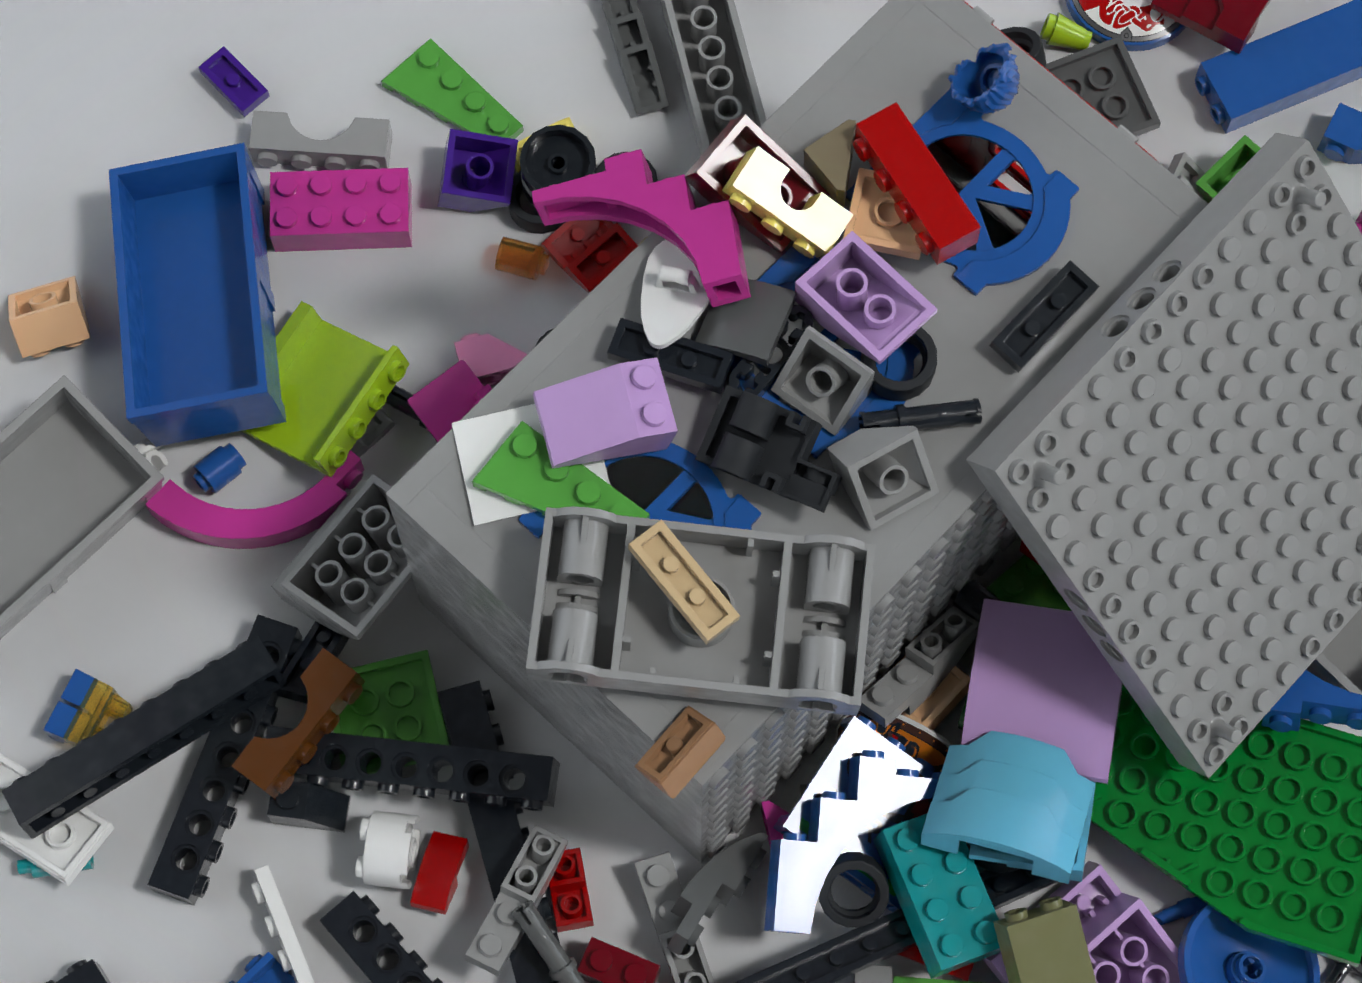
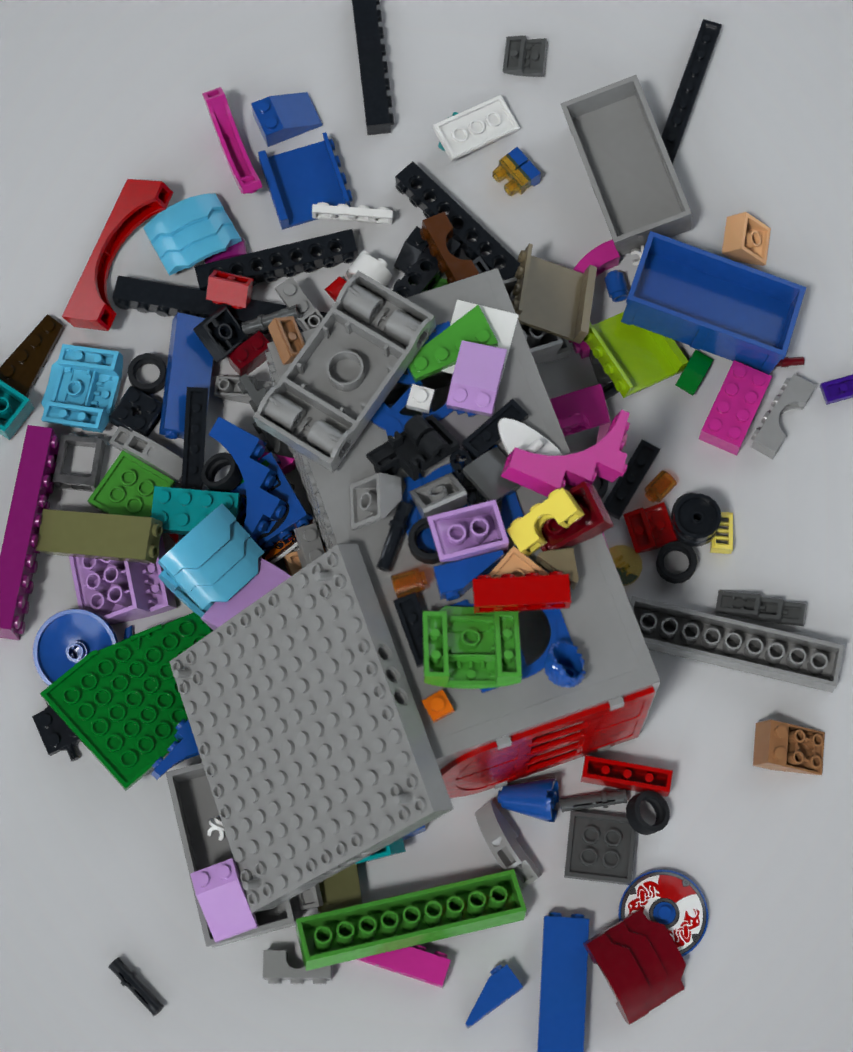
camera: 120 degrees right, 0 degrees up
(143, 737) = (485, 186): black brick -> none
(301, 522) = (553, 297): none -> dark tan panel
(322, 291) = (694, 372): none -> green slope
(449, 92) = (784, 497): bright green wing -> none
(477, 171) = (722, 483): dark purple slope -> none
(517, 303) = (629, 483): none -> black plate
(675, 492) = (420, 398): none -> white plate
(683, 581) = (358, 358): tan plate -> none
(941, 285) = (457, 577): none -> blue slope
(980, 358) = (409, 582): none -> clear orange brick
(1032, 219) = (471, 648): none -> bright green slope
(1064, 32) = (651, 856): lime cone -> none
(1136, 235) = (438, 706): none -> orange plate

